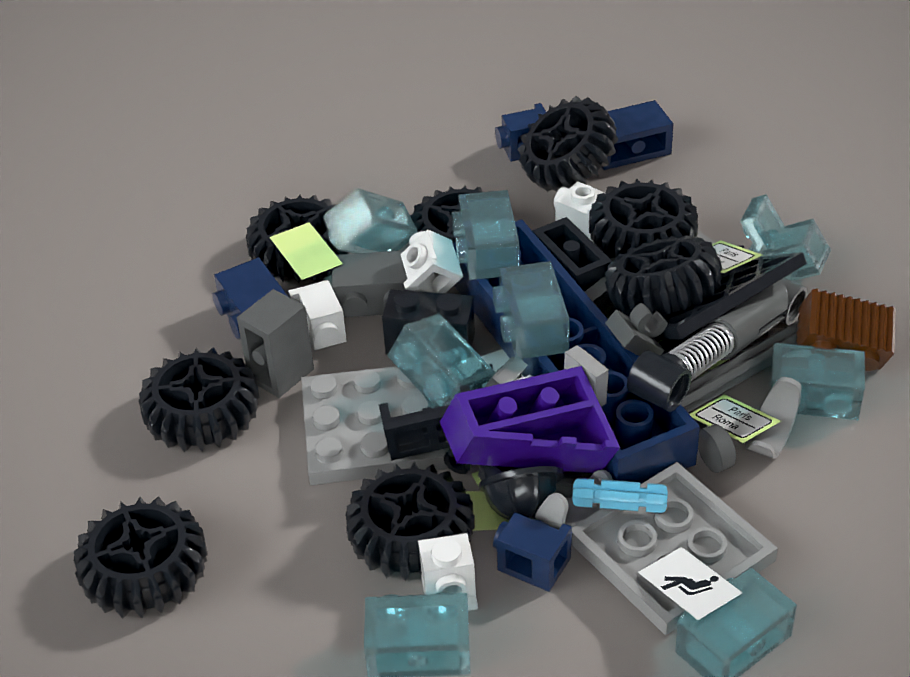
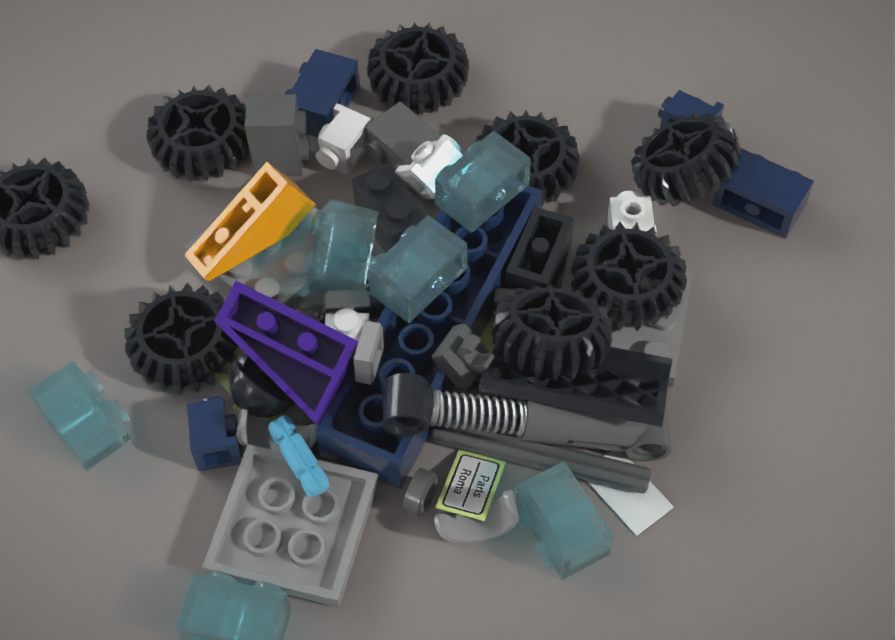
camera: 50 degrees right, 15 degrees up
(306, 251) = (388, 82): yellowish green sticker -> none
(353, 398) = (253, 221): none -> light orange slope
(369, 223) = (445, 100): clear light blue brick -> none
(416, 431) = (267, 278): black hinge -> none
(448, 566) = (146, 396): white brick -> none
(690, 583) = (241, 559): white sticker -> none
(732, 255) = (638, 358): sticker -> none
(772, 237) = (712, 391): clear light blue brick -> none
(848, 324) = (636, 508): reddish brown brick -> none

